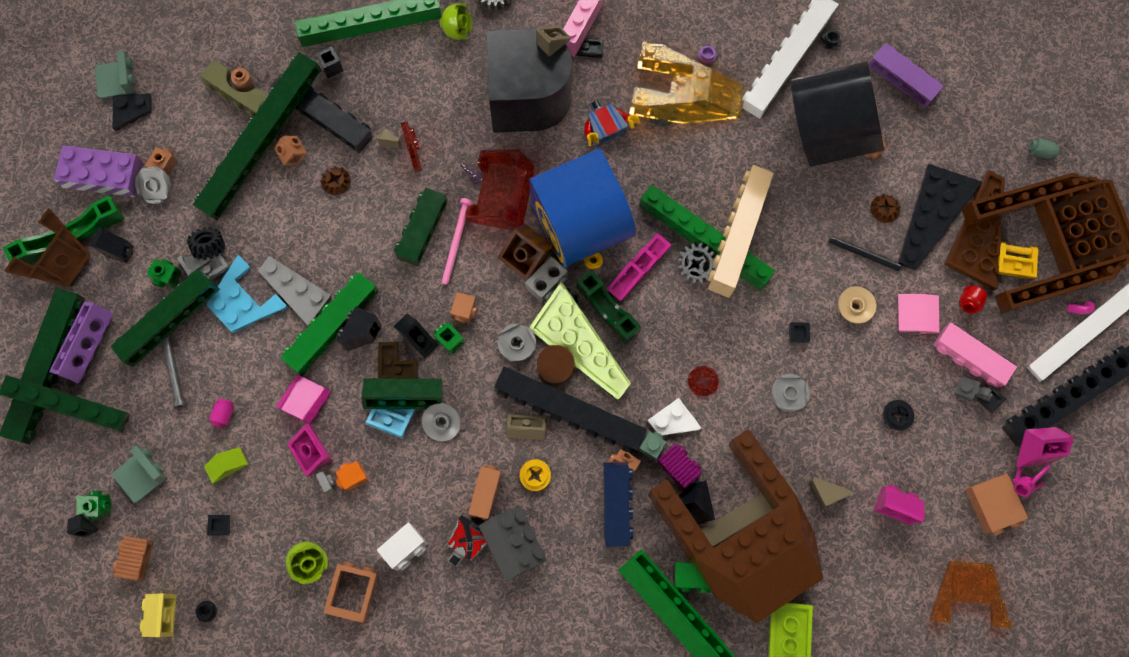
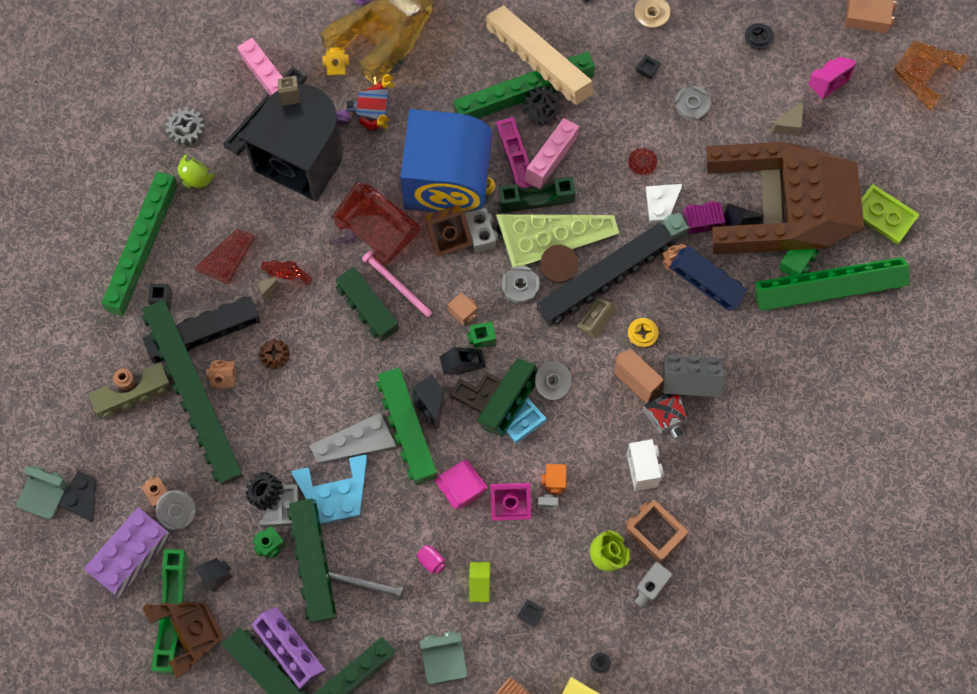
camera: 55 degrees left, 5 degrees down
(298, 618) = (659, 577): none -> light grey torso
(396, 92) = (226, 257): none -> clear red wing
(582, 105) = (343, 116): none -> medium lavender plate
(628, 69) = (336, 68): none -> yellow brick
(655, 297) = (551, 153): none -> bright pink brick

